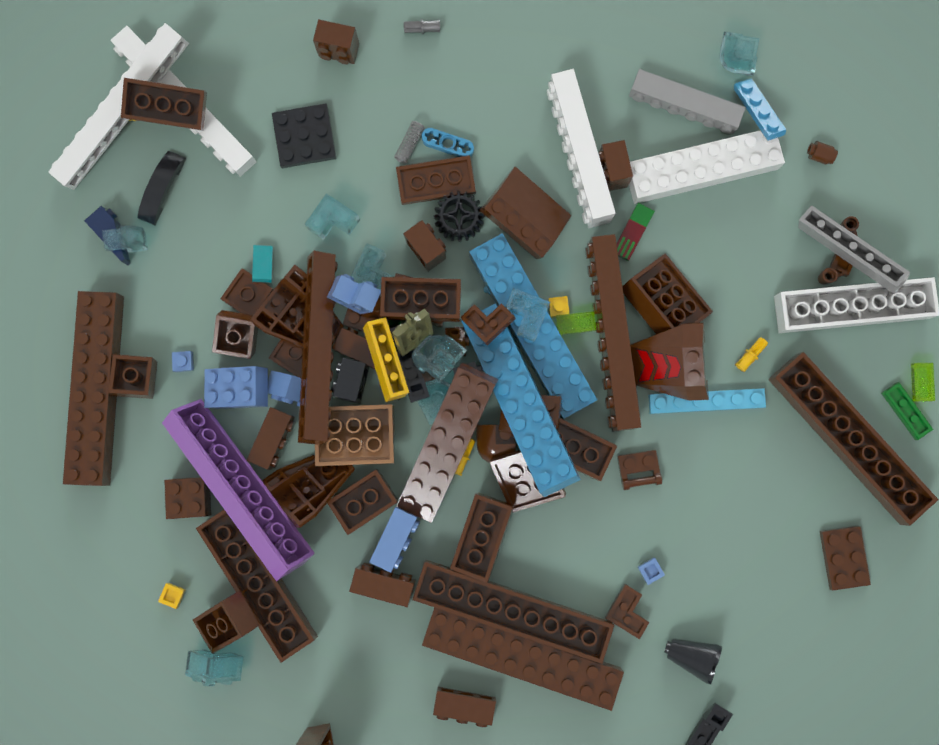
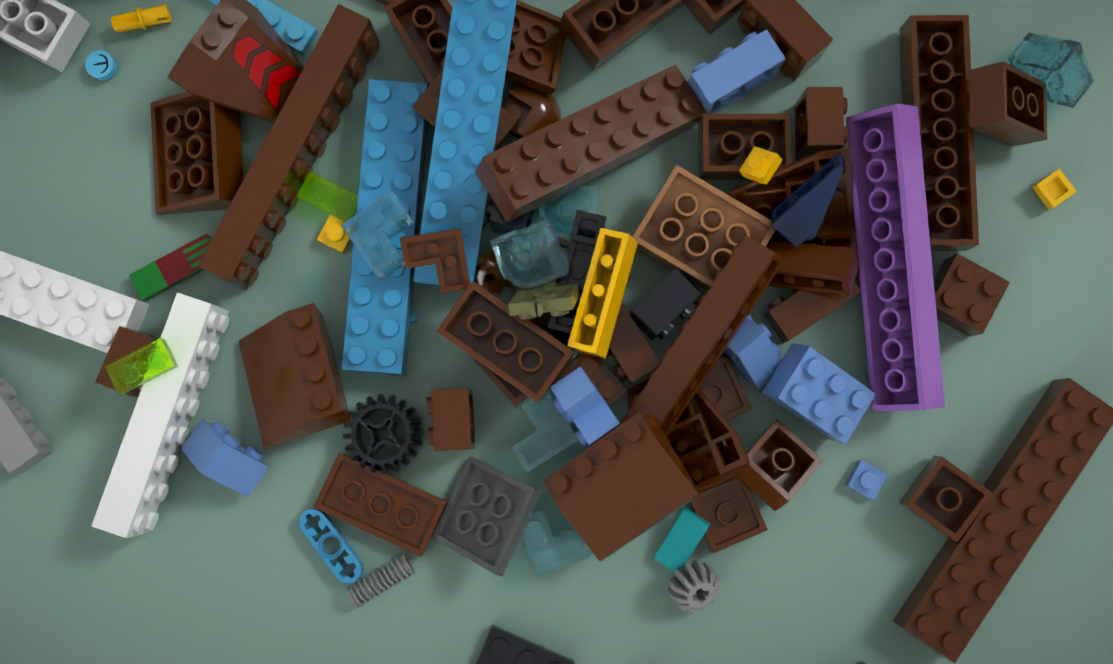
camera: 150 degrees left, 0 degrees up
(241, 243) = (694, 586): none -> light grey gear
(281, 455) = (815, 267): none -> reddish brown brick
(305, 481) = (805, 208): none -> dark blue slope
(310, 265) = (621, 485): none -> reddish brown slope
(327, 542) = (820, 121): none -> reddish brown brick
(345, 491) = (760, 165): none -> yellow plate
(374, 208) = (486, 515): none -> dark grey plate
(533, 147) = (223, 459): none -> medium blue brick
(604, 162) = (141, 366): none -> clear neon green plate
(755, 314) = (101, 65): none -> medium azure tile

